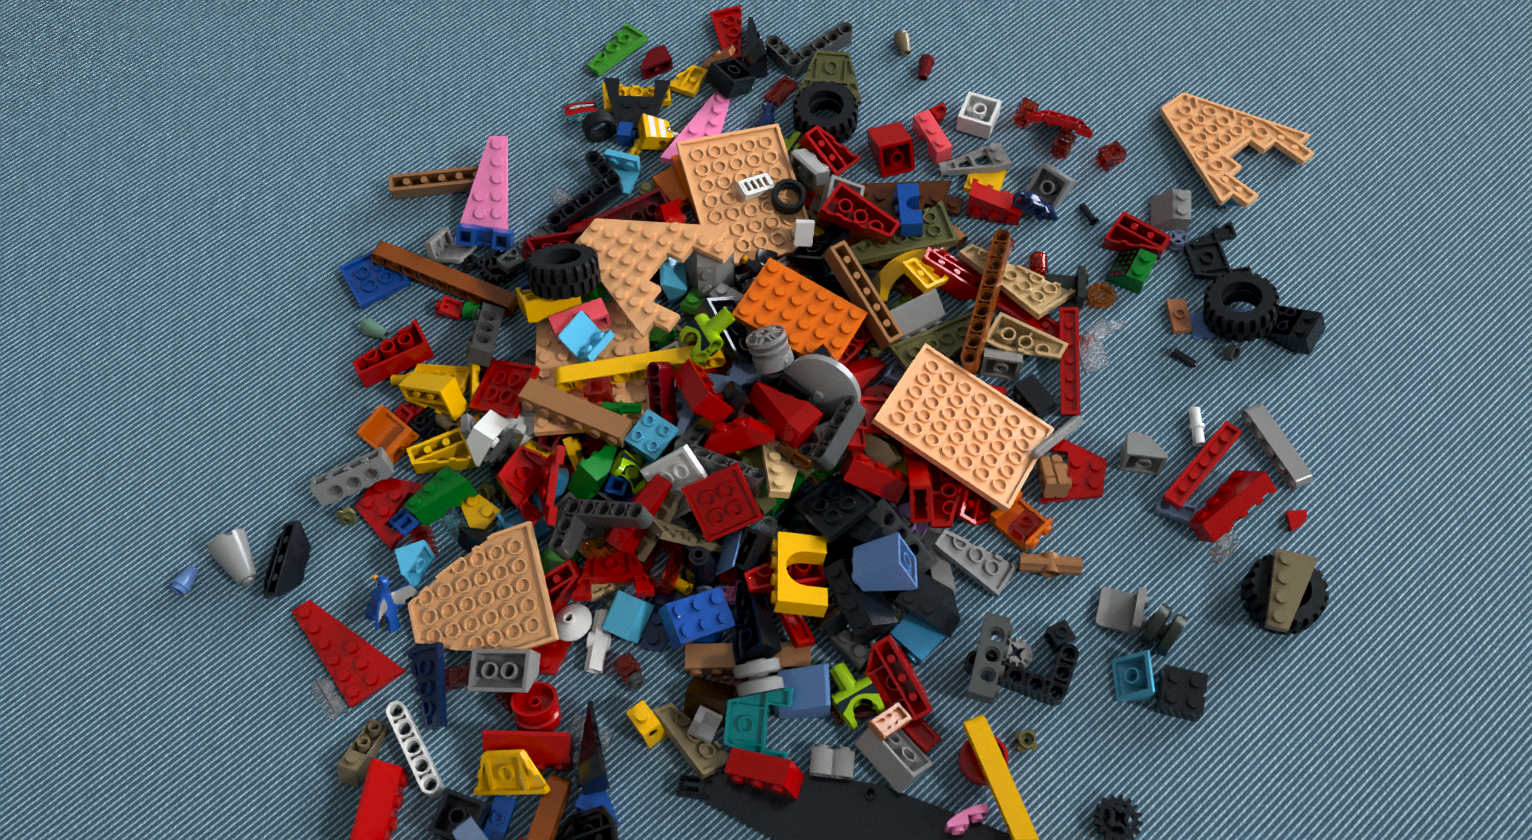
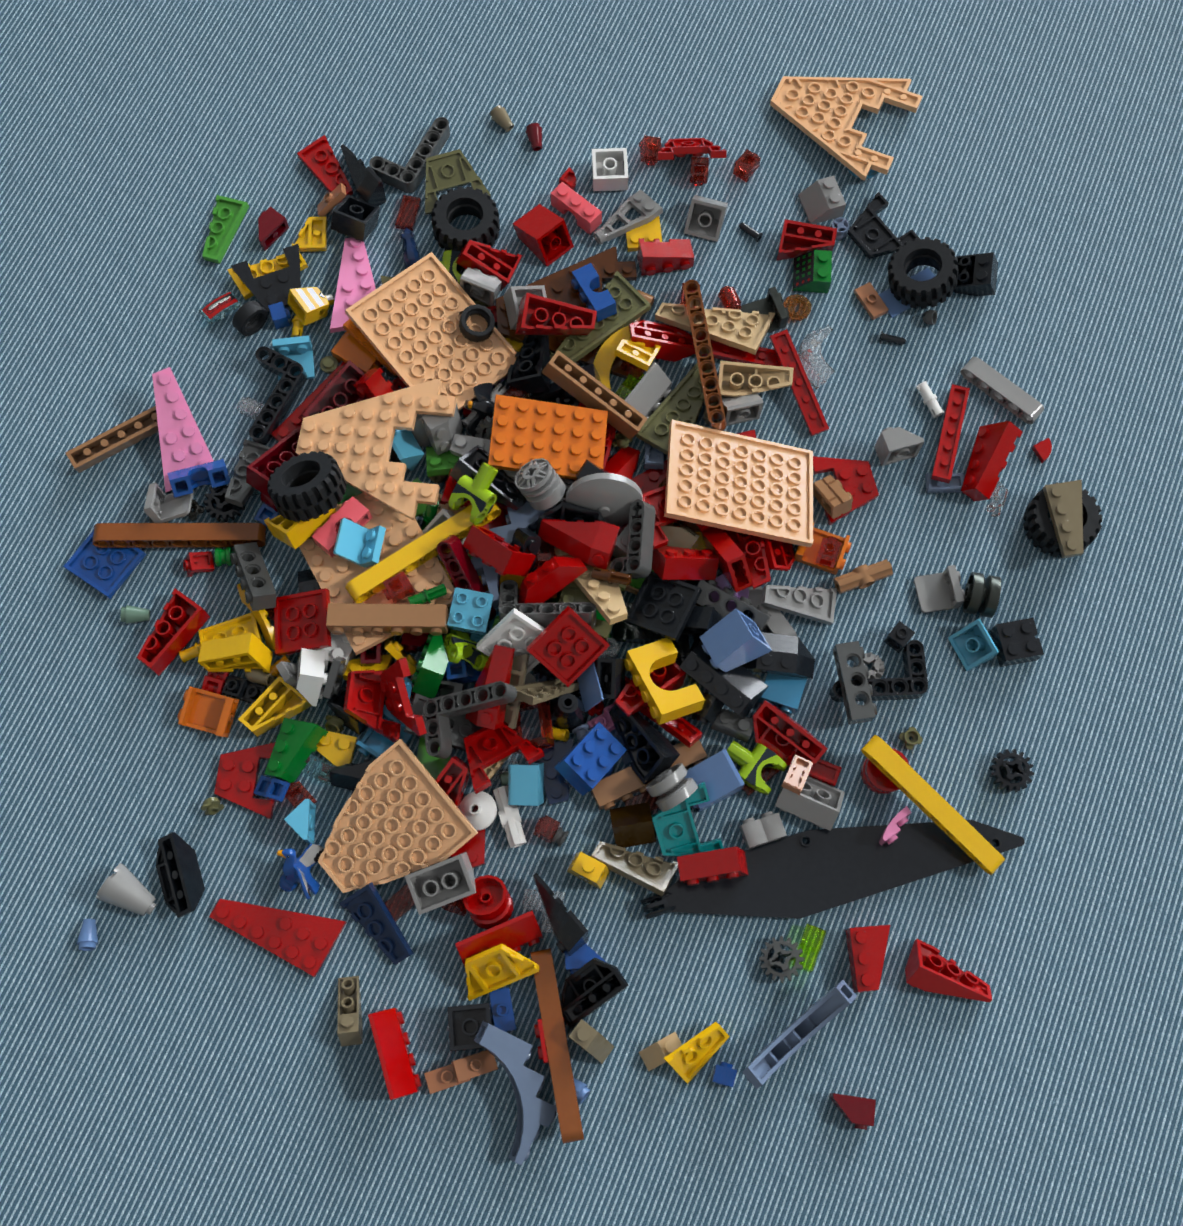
camera: 30 degrees left, 10 degrees up
(322, 485) = (198, 768): light grey brick -> none
(325, 691) = (282, 973): clear hinge -> none
(421, 756) = (388, 978): white beam -> none
(590, 548) = (462, 737): clear orange gear -> none
(705, 724) = (640, 847): light grey panel -> none
(748, 182) = (432, 334): white slope -> none
(803, 232) = (509, 355): white slope -> none
(1033, 203) = (702, 242): dark blue animal -> none
(1034, 397) = (782, 429): black brick -> none
(1056, 437) = (819, 458): light grey axle -> none

